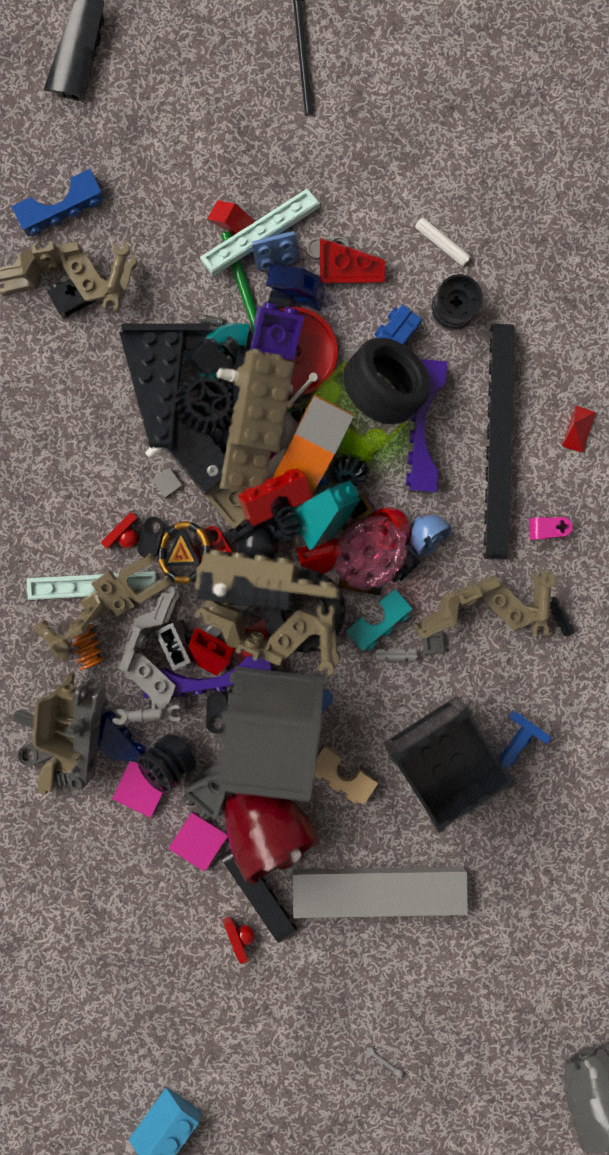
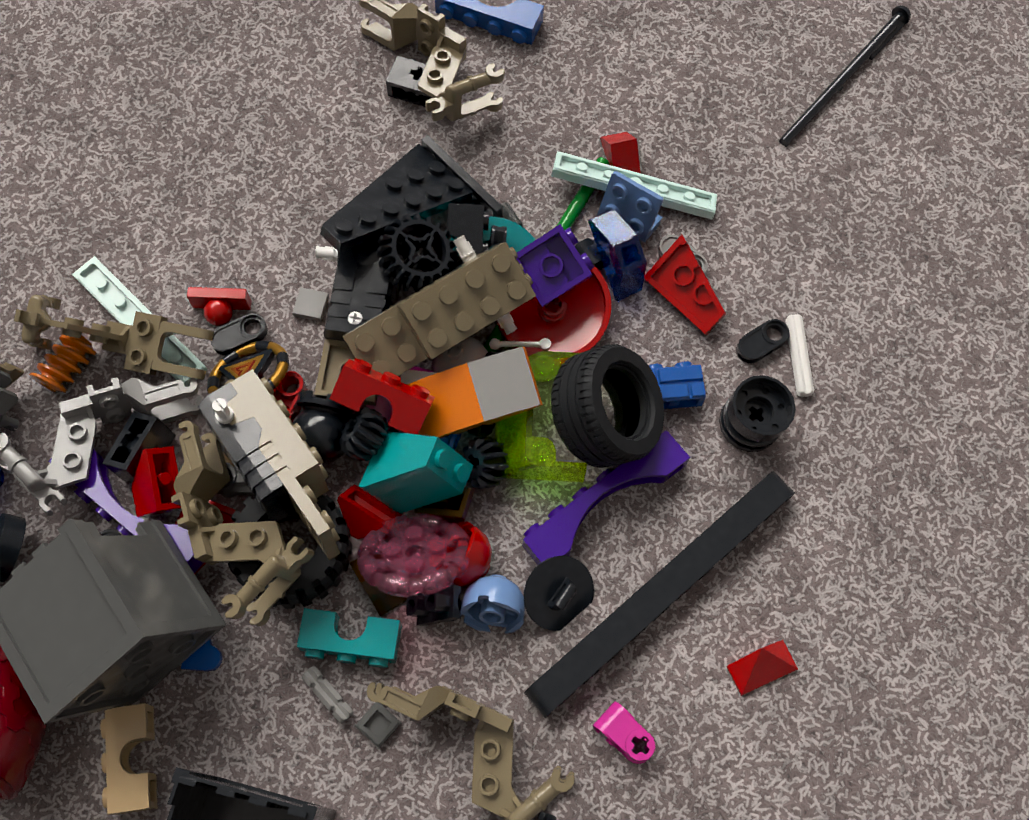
camera: 45 degrees right, 20 degrees down
(416, 258) = (757, 344): none -> black piece
(451, 496) = (558, 592): none -> black shield

